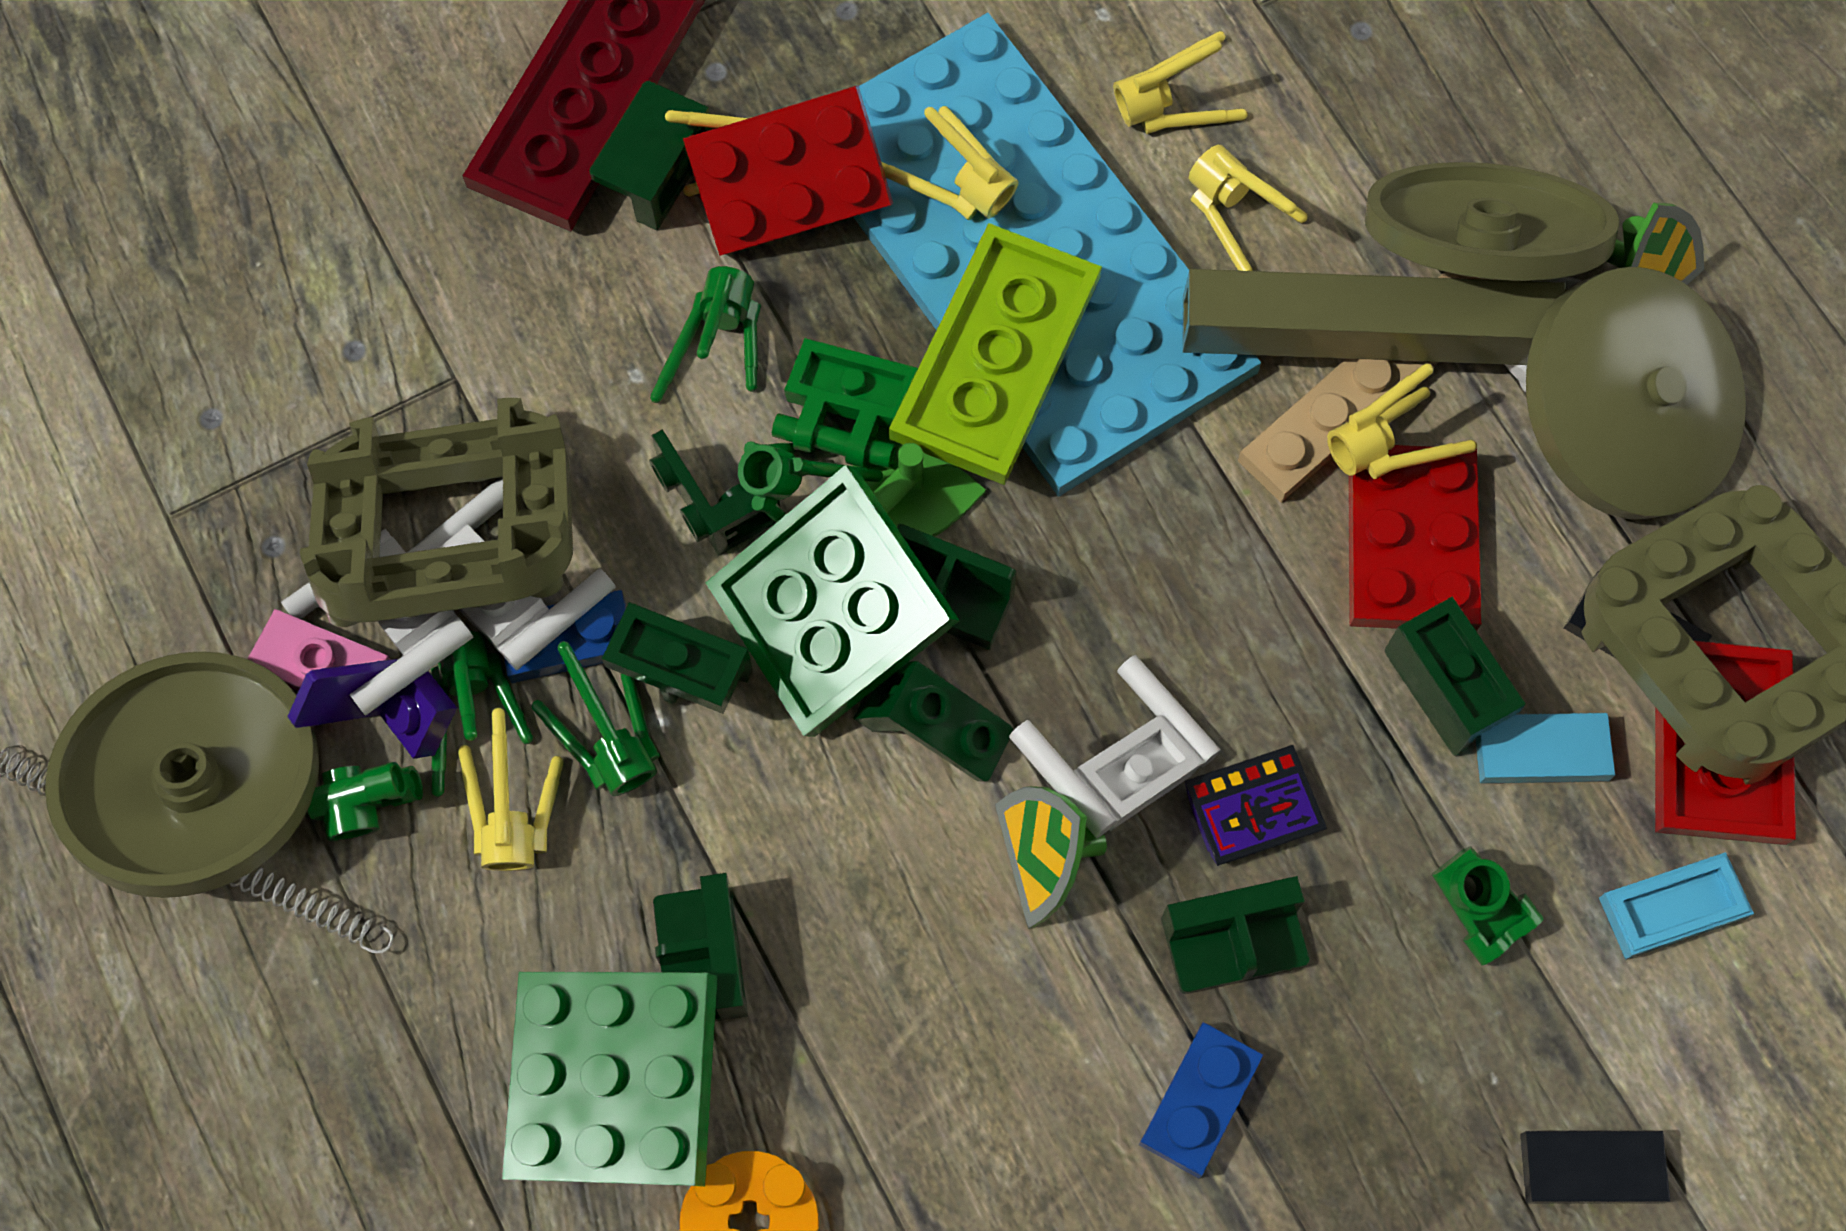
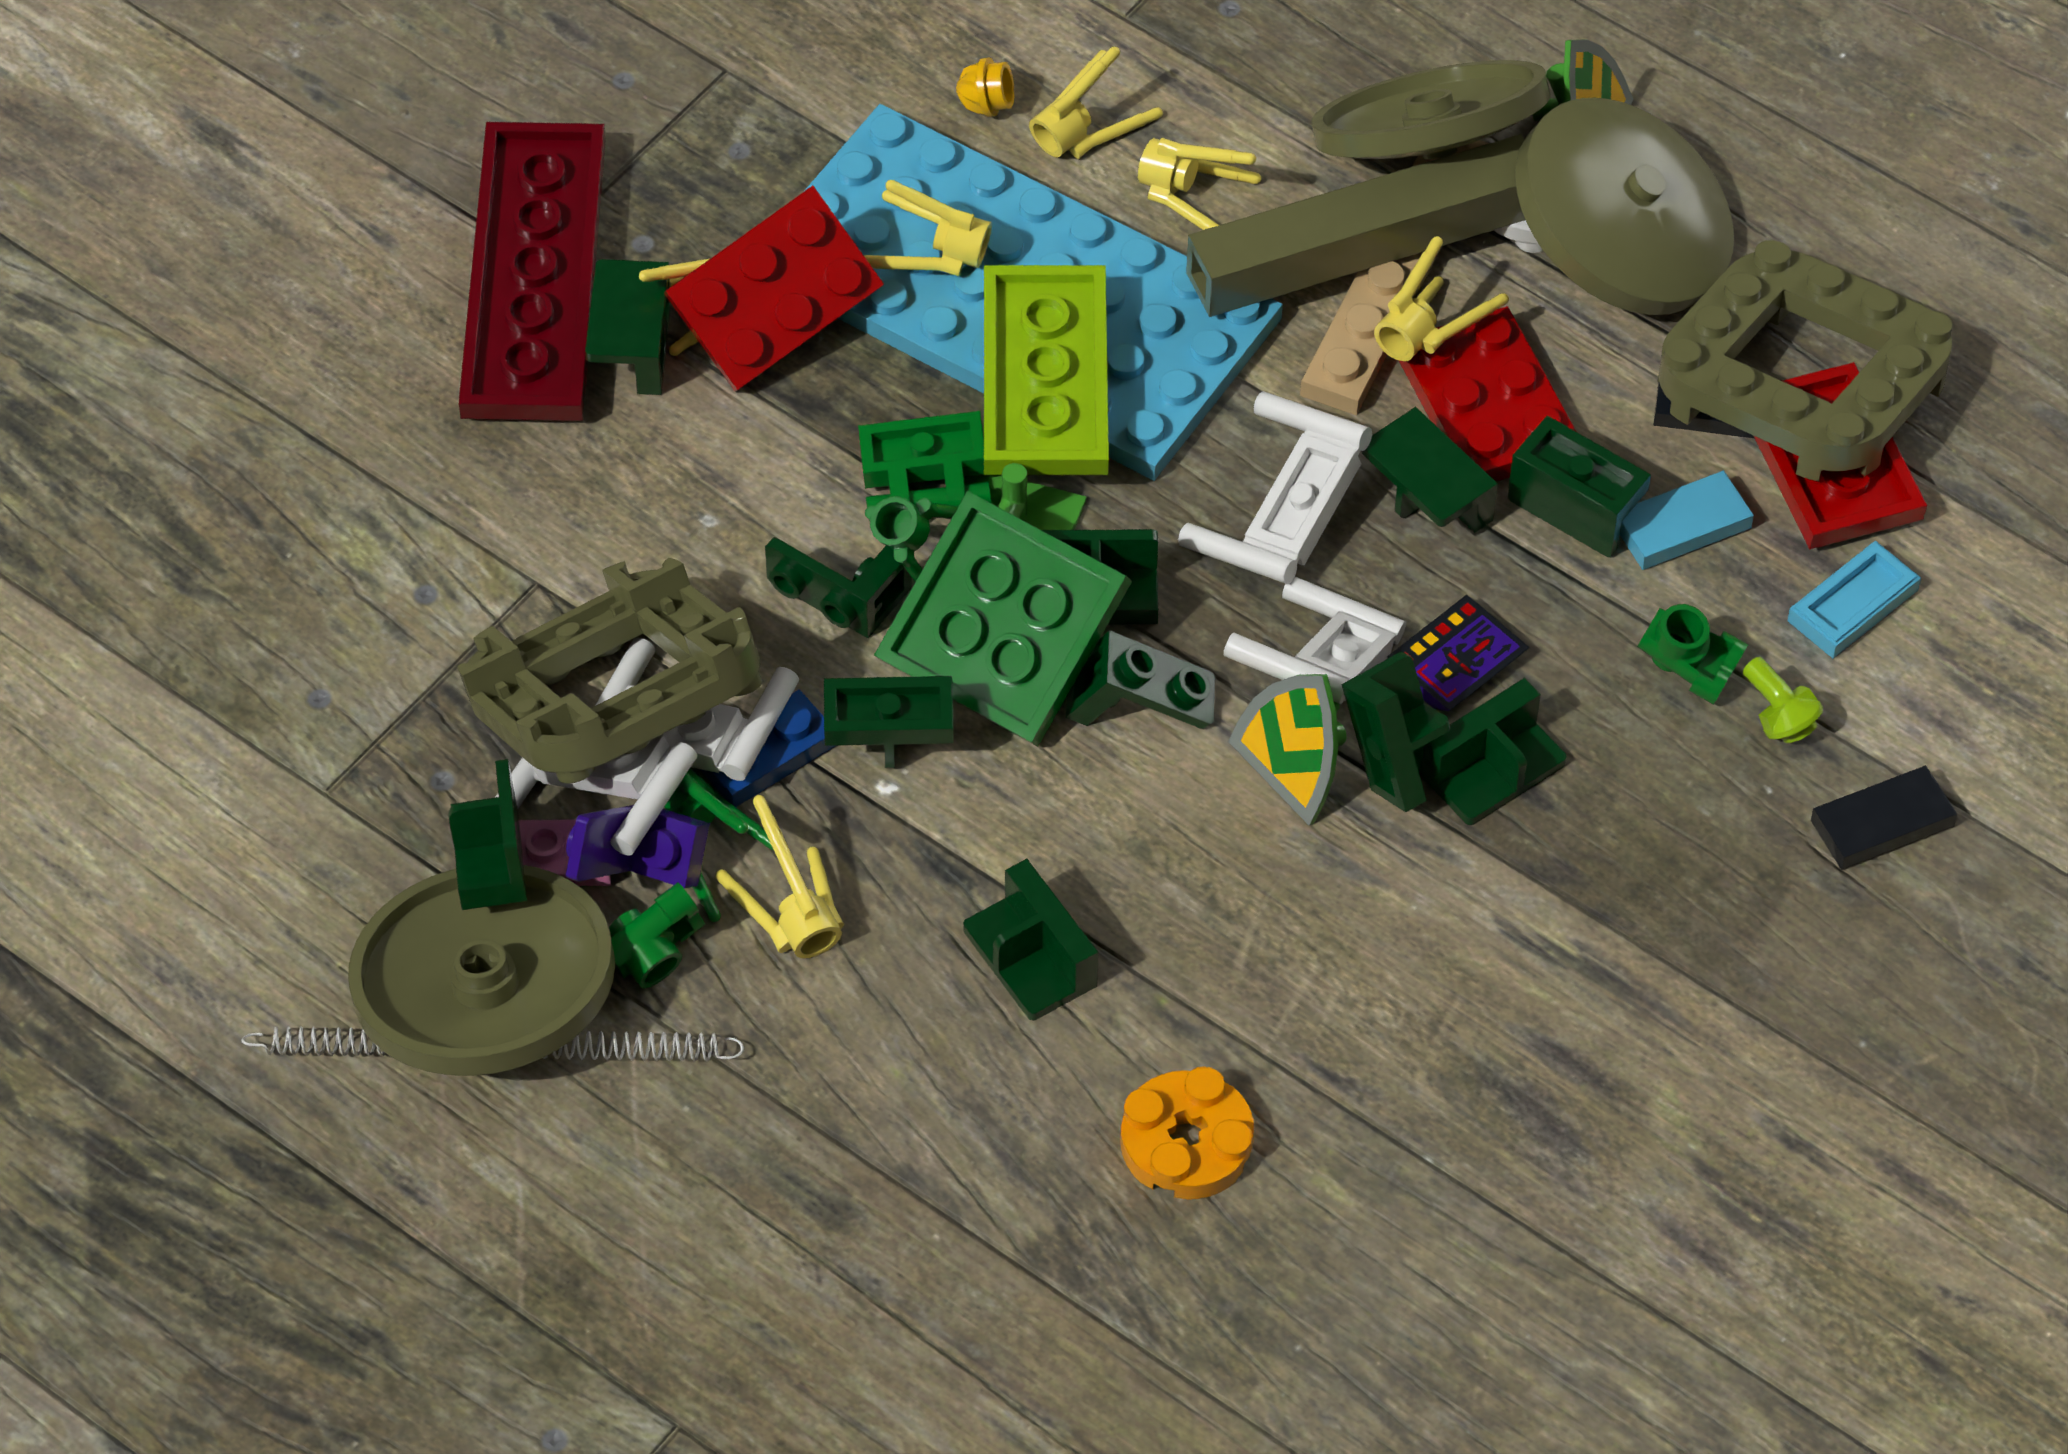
camera: 25 degrees left, 15 degrees down
(250, 647) = (489, 847): none -> dark green panel
(611, 1078) = (1007, 1058): plate -> none
(621, 759) = (874, 818): green plant -> none
(722, 306) = (766, 428): green plant -> none
(1093, 32) = (986, 87): none -> yellow plate
(1144, 878) = (1393, 728): none -> dark green panel
(1176, 581) = (1300, 497): none -> white plate
(1201, 1100) = (1528, 894): blue plate -> none
(1313, 604) = (1432, 473): none -> dark green panel
(1551, 1015) = (1791, 711): none -> lime plate

